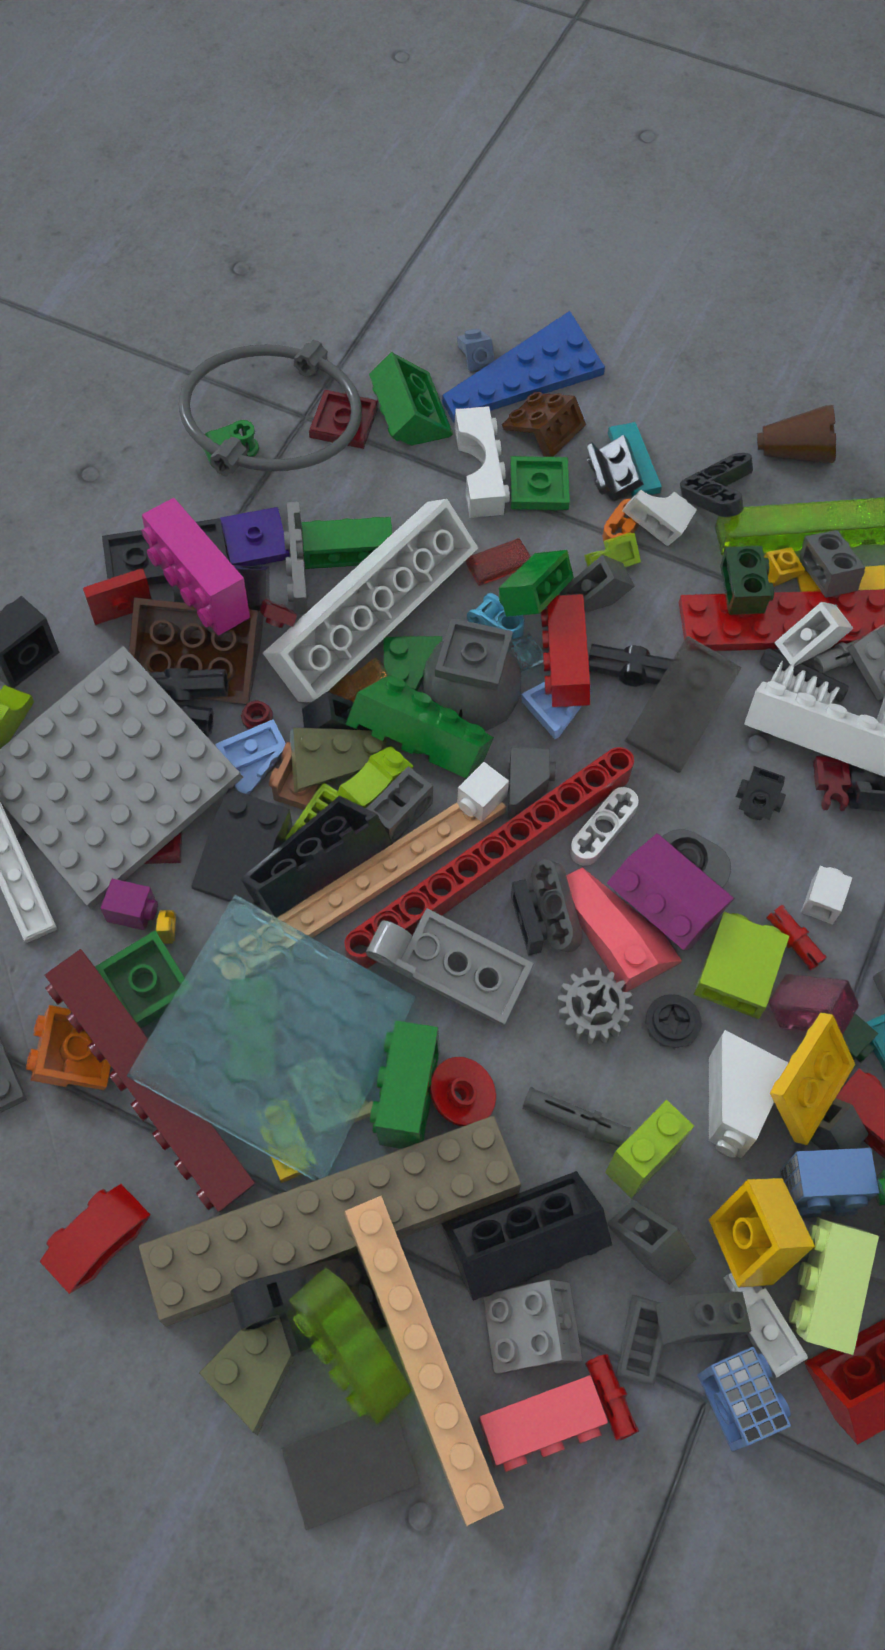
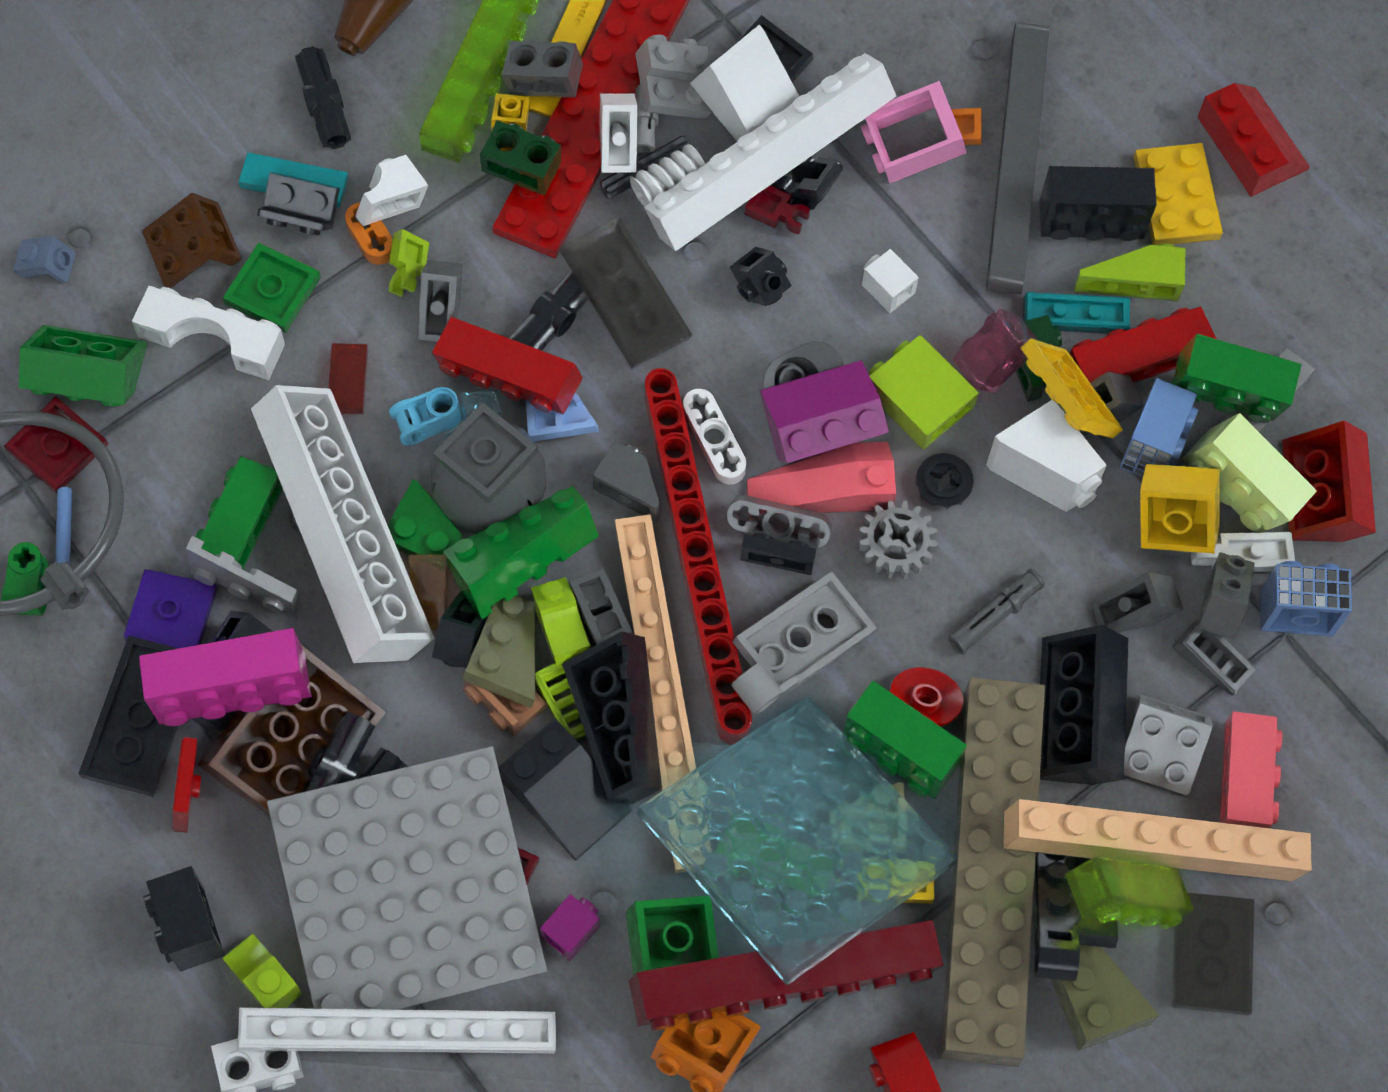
camera: 65 degrees left, 5 degrees up
(166, 926) = (614, 901): yellow tile -> none
(253, 709) = (405, 698): dark red plate -> none
(253, 753) = (452, 726): light blue wing -> none
(277, 614) = (313, 624): dark red plate -> none
(283, 450) = (63, 525): none -> medium blue bar
(482, 792) = (631, 526): white brick -> none
(536, 583) = (415, 354): green brick -> none
(542, 363) = (106, 210): blue wing -> none
(612, 1397) = (1252, 703): red pin -> none
(649, 1148) = (1064, 560): lime brick -> none
(709, 445) = (323, 97): none -> black piece
(709, 490) = (380, 127): black beam -> none
(798, 937) = (909, 330): red pin -> none

